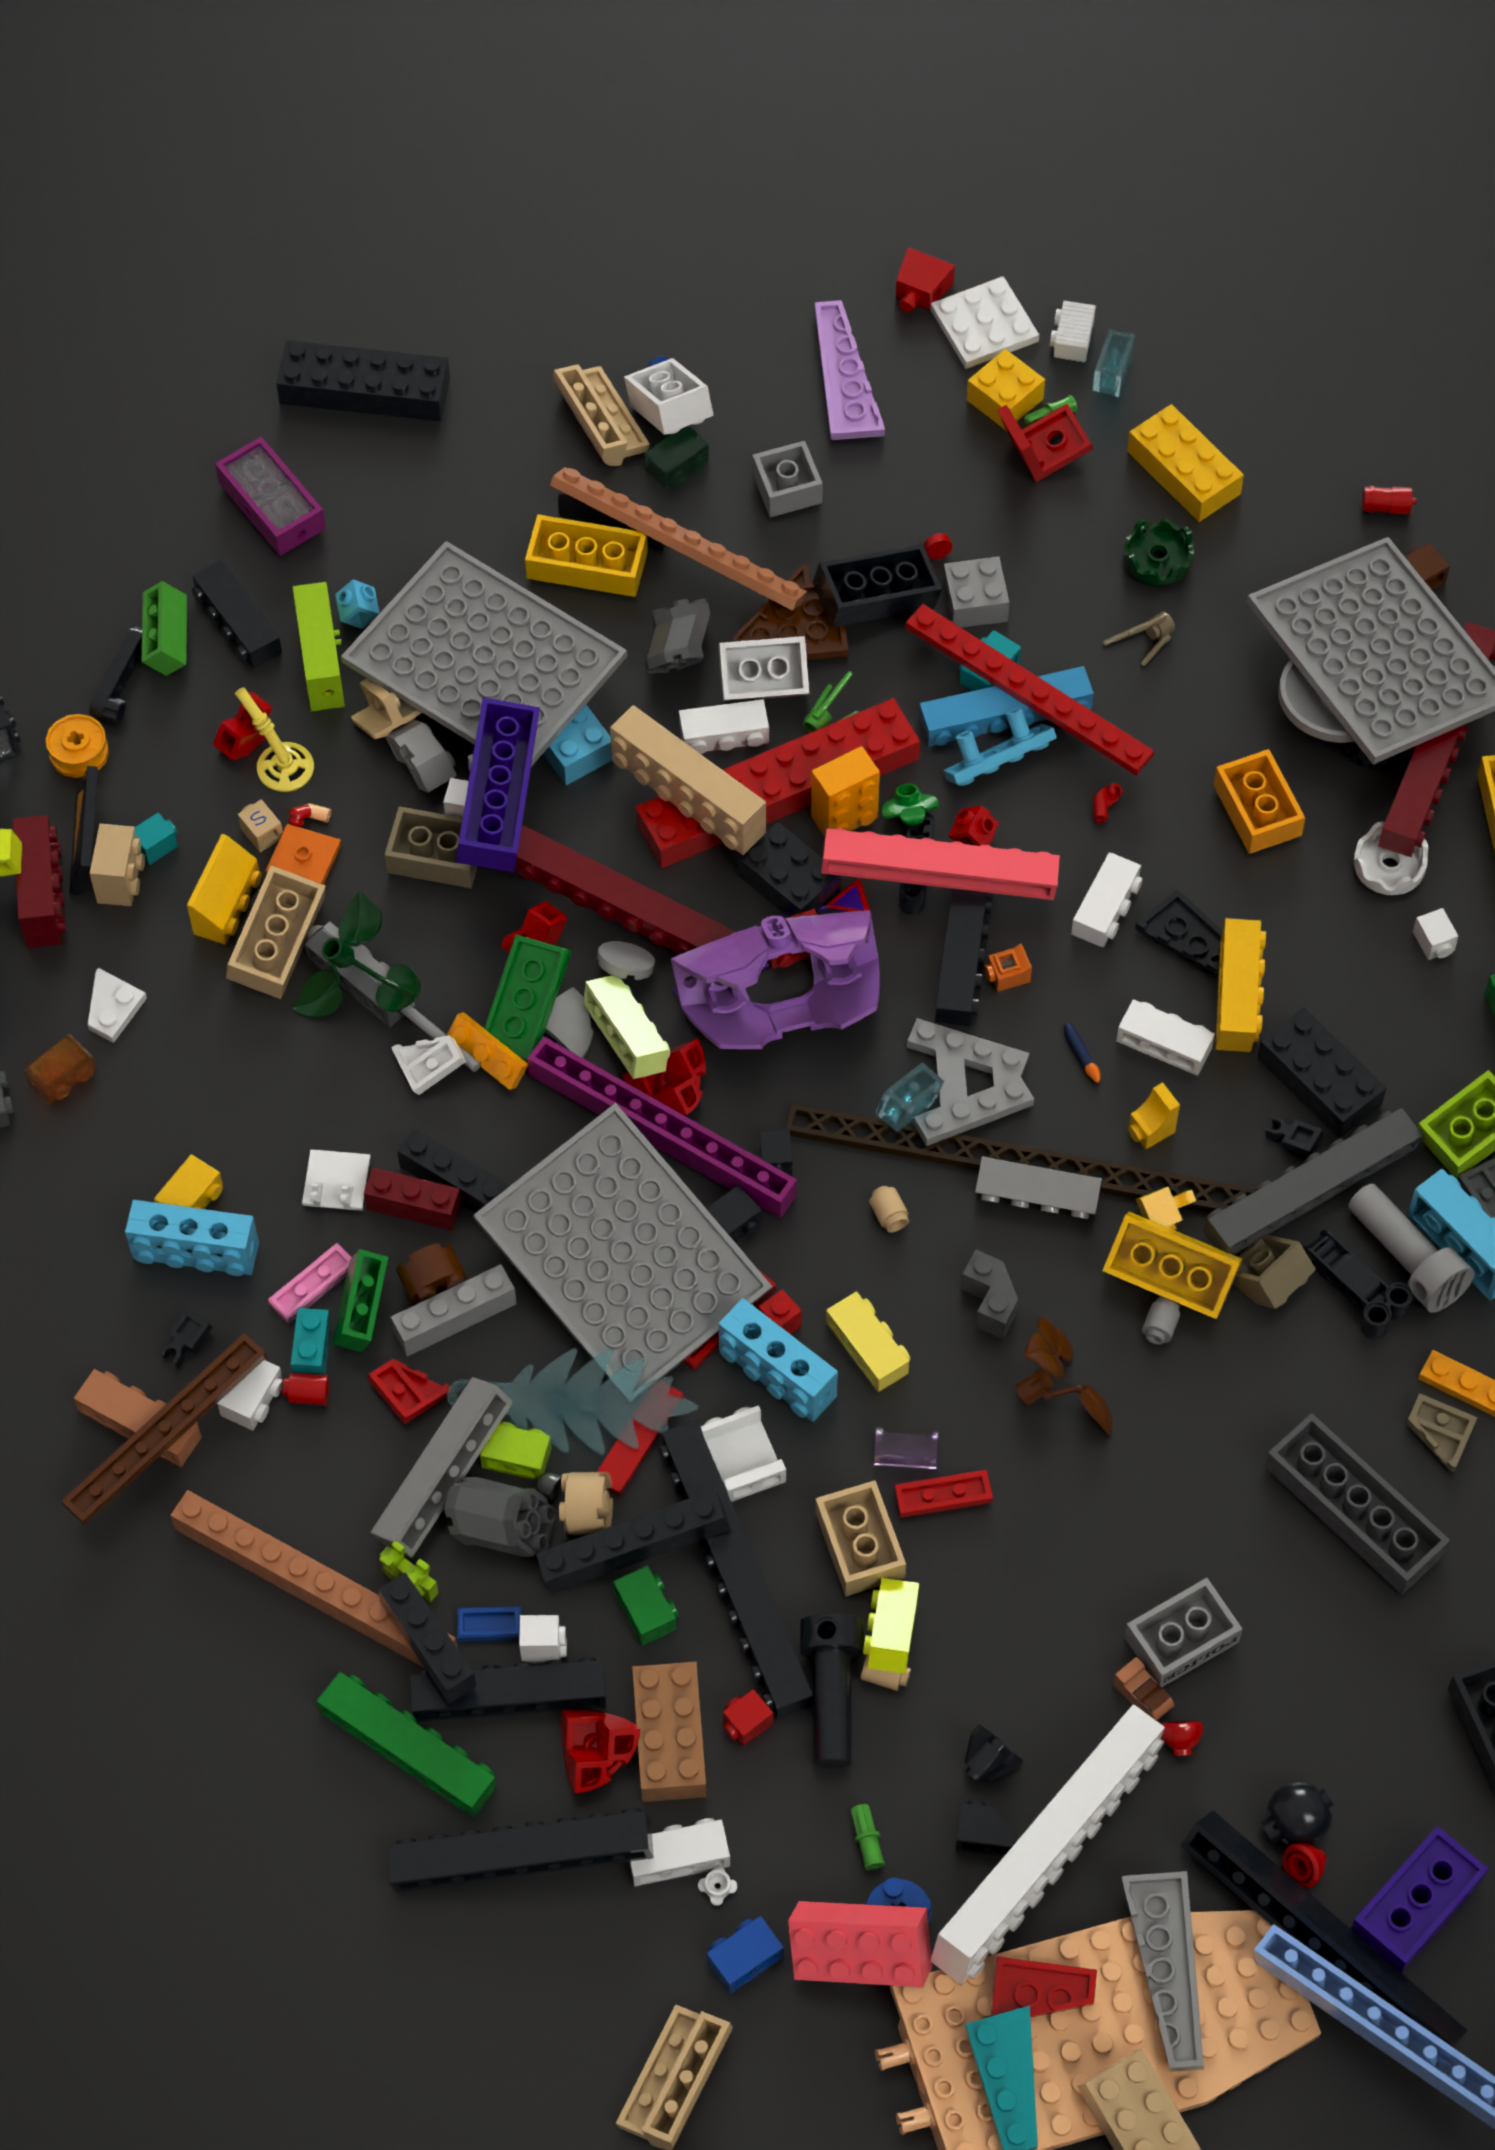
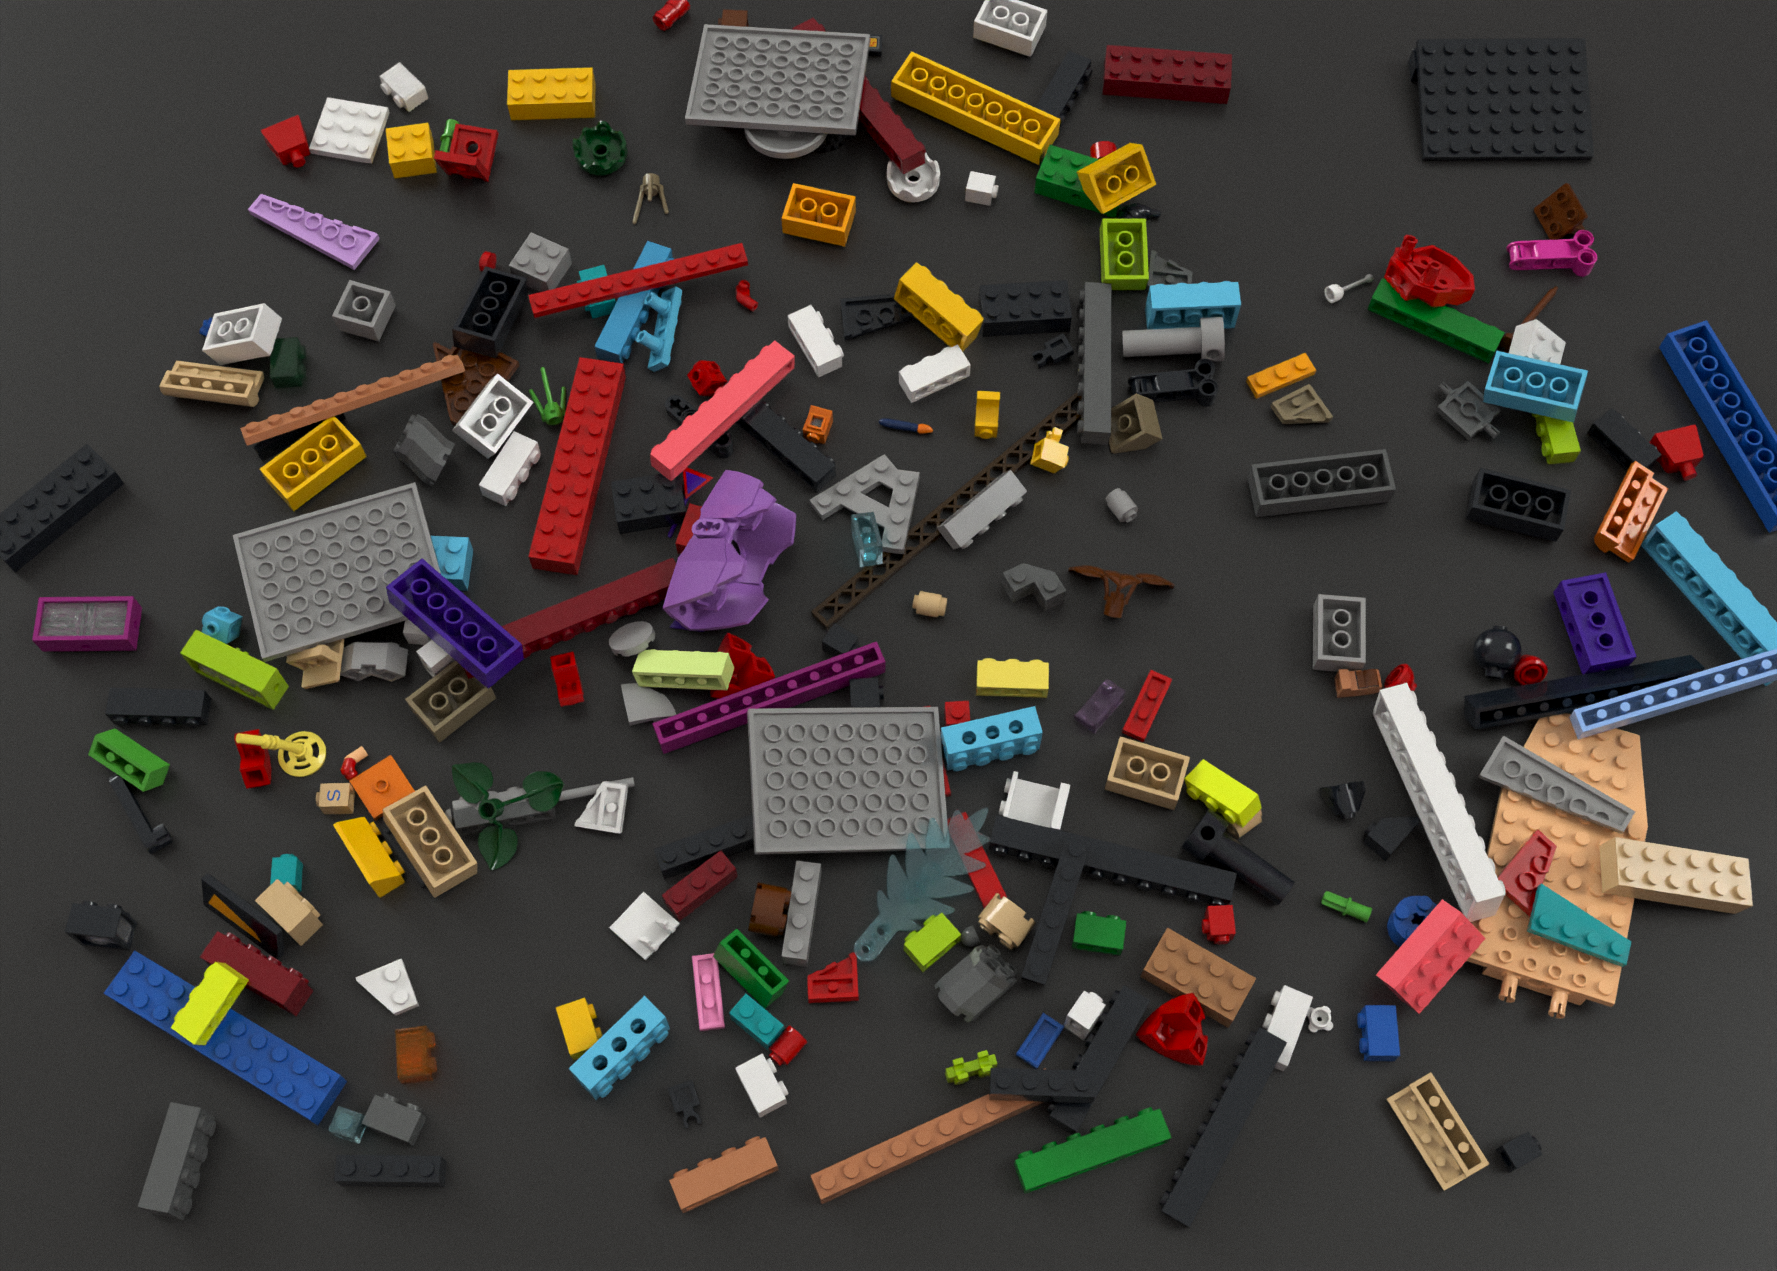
camera: 55 degrees left, 5 degrees up
(75, 744) = (168, 878): light orange wheel -> none
(164, 1429) = (755, 1162): reddish brown plate -> none
(442, 1465) = (914, 995): light grey brick -> none
(488, 1050) = (627, 766): light orange plate -> none
(526, 994) = (612, 717): green tile -> none
(688, 780) = (545, 509): tan brick -> none
(845, 792) = (627, 429): light orange brick -> none
(909, 805) = (658, 402): green plate -> none
(1114, 362) = (448, 80): clear light blue brick -> none
(1172, 1265) = (1096, 472): yellow brick -> none

